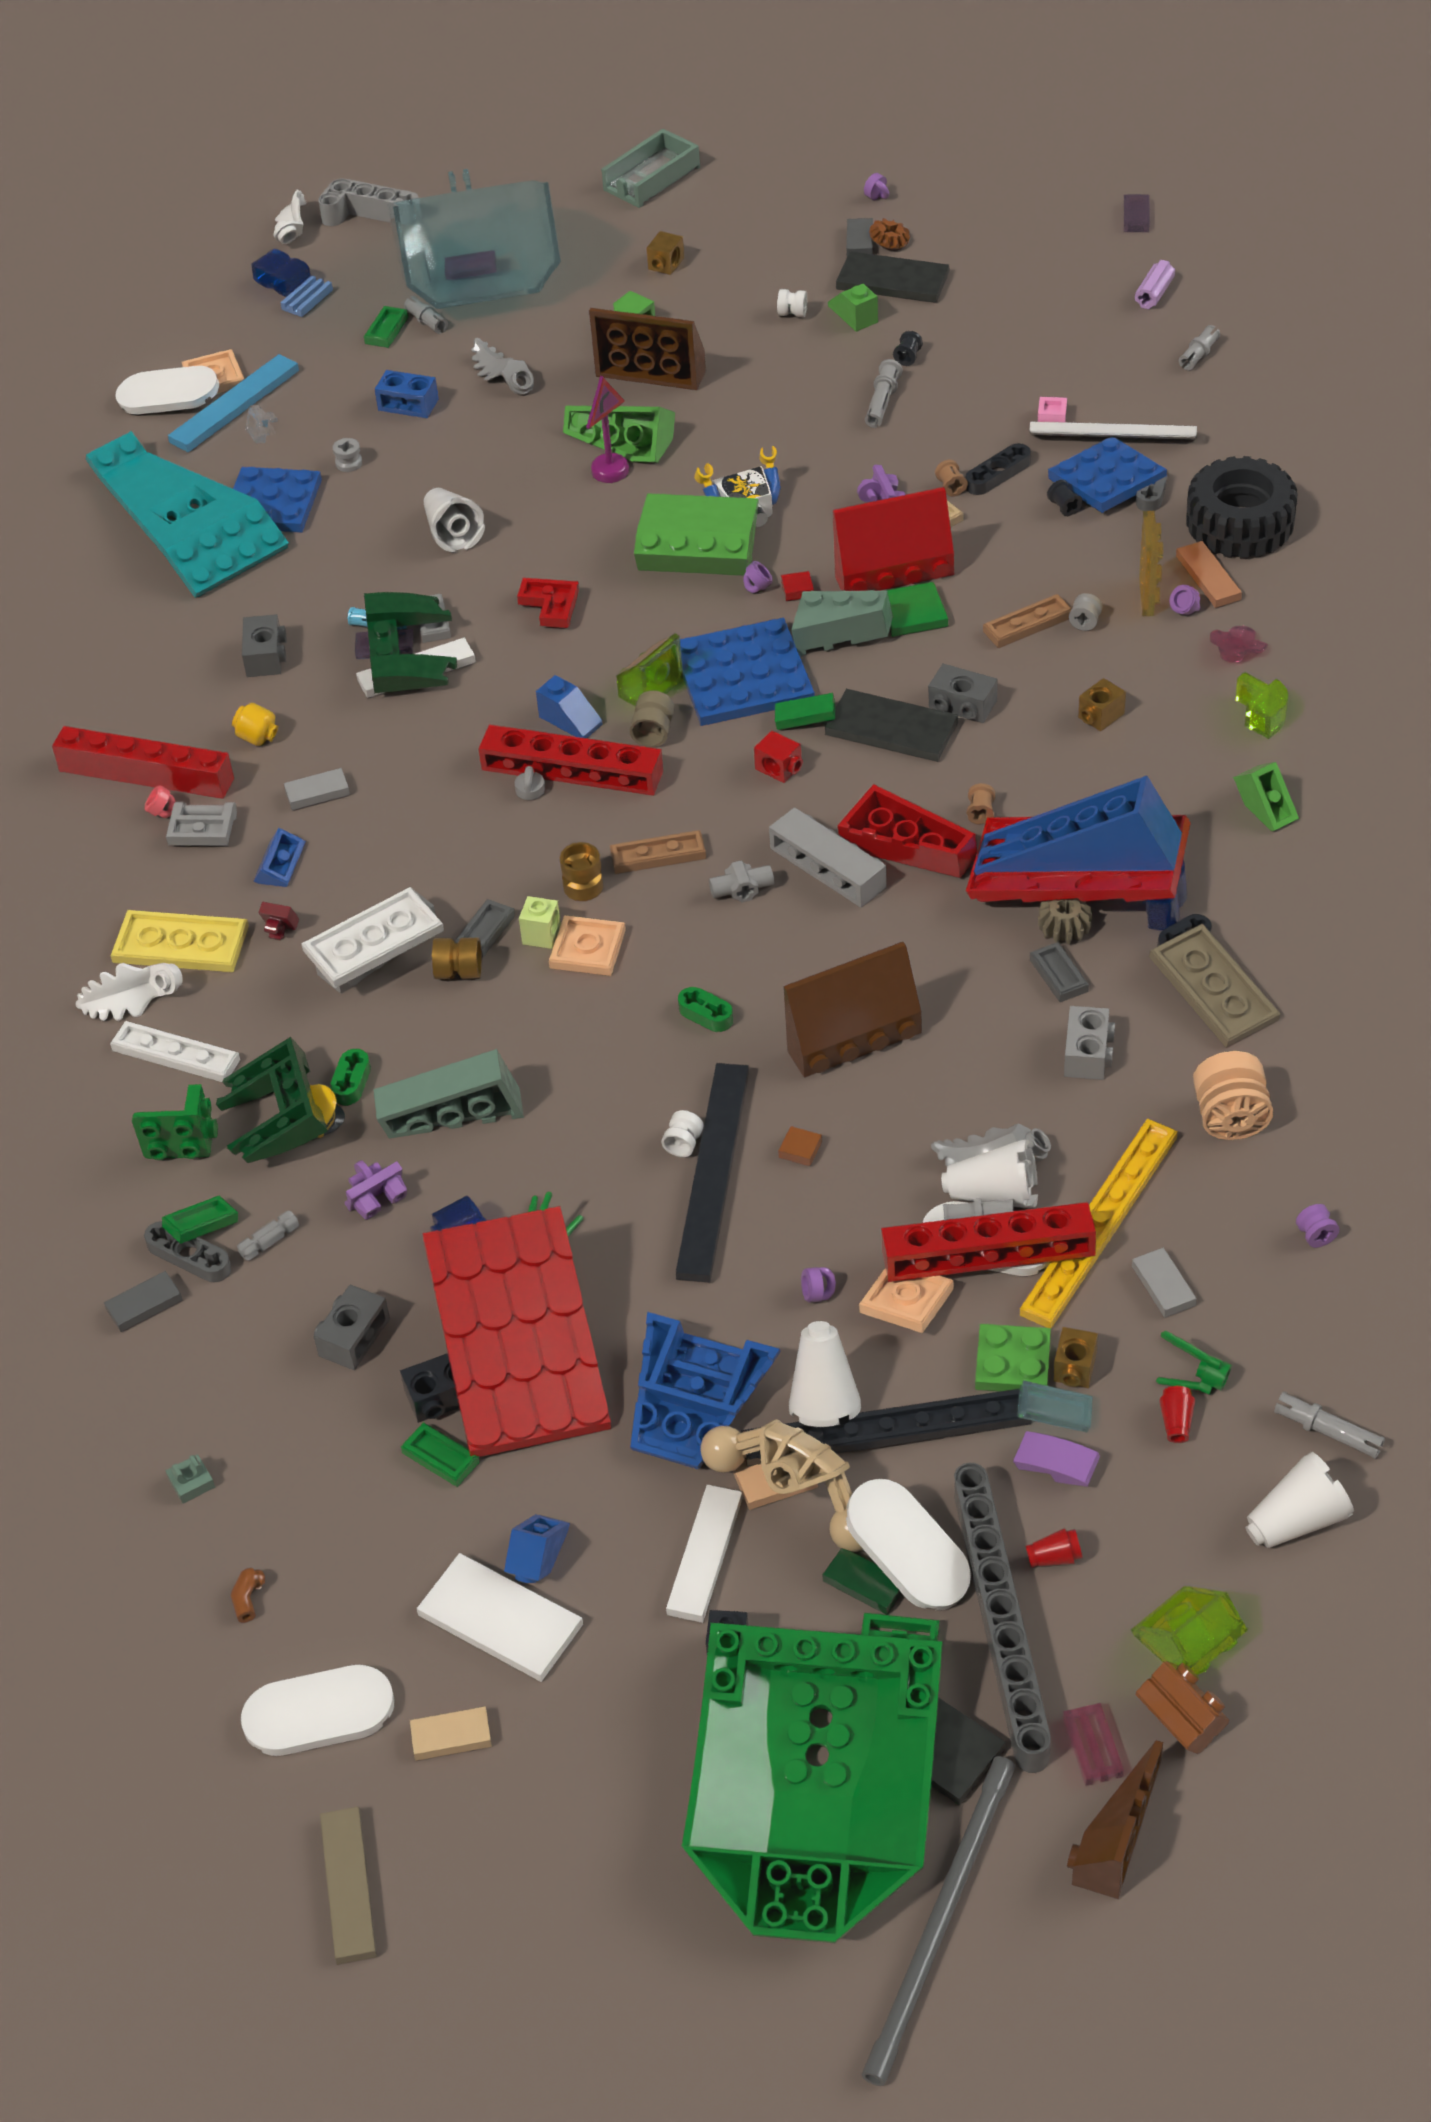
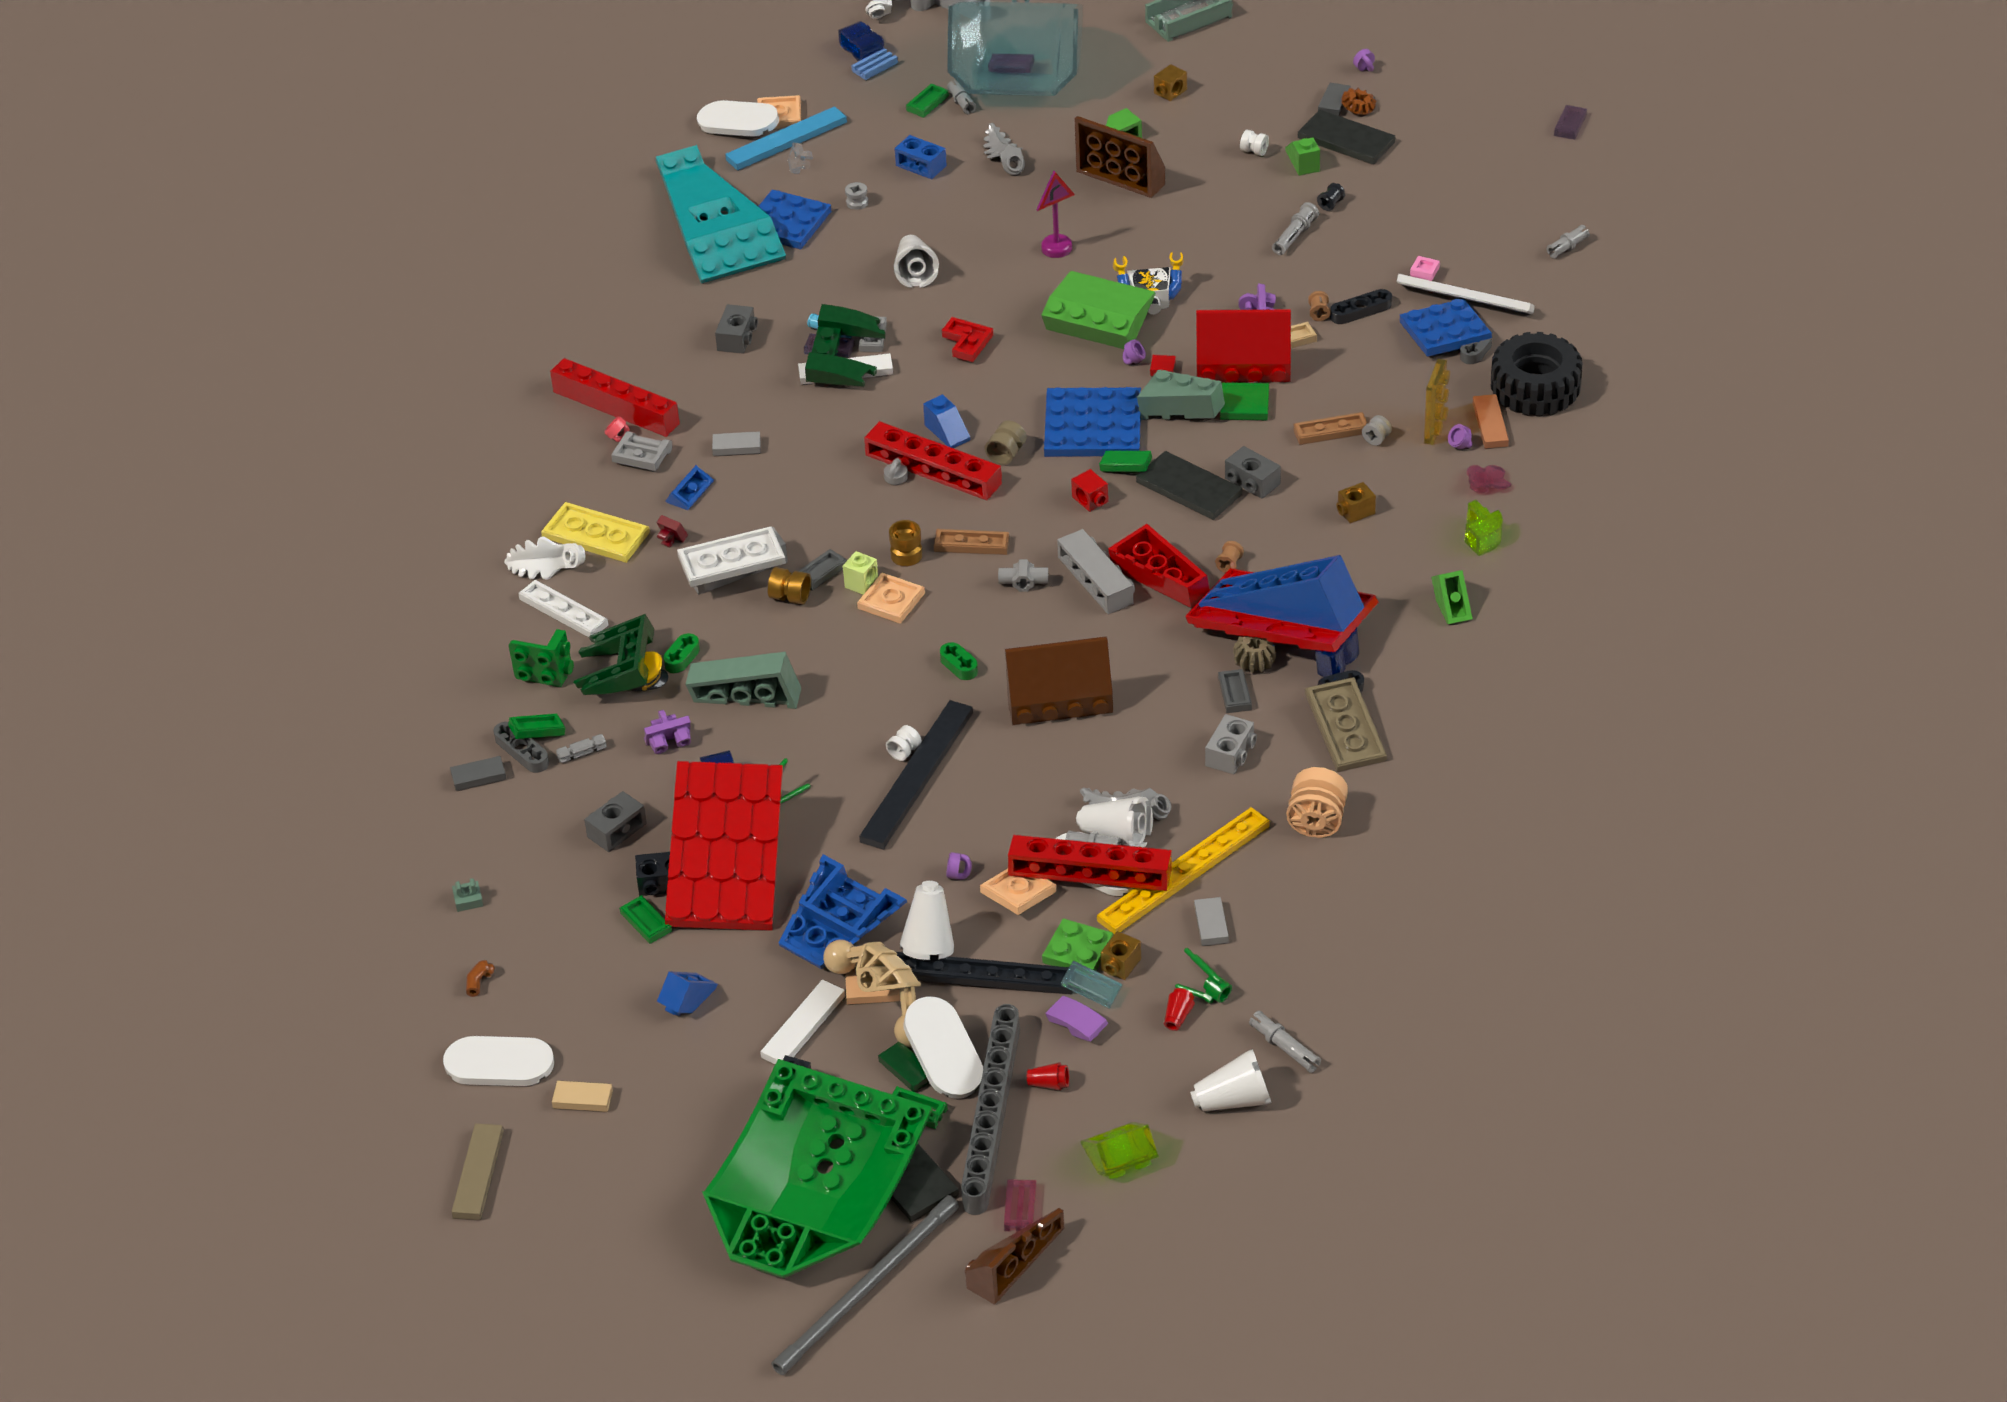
camera: 15 degrees right, 5 degrees down
(254, 724) = (707, 386): yellow head -> none
(500, 1617) = (645, 1031): white tile -> none
(635, 431) = (1081, 220): bright green wedge -> none
(653, 670) = (1022, 407): clear neon green slope -> none
(800, 1146) = (987, 771): dark orange tile -> none
(1062, 495) = (1401, 336): black bush -> none
(1154, 284) = (1555, 183): lavender axle -> none
(1182, 1706) = (1089, 1193): dark orange brick -> none
(1317, 1225) = (1341, 907): medium lavender wheel -> none

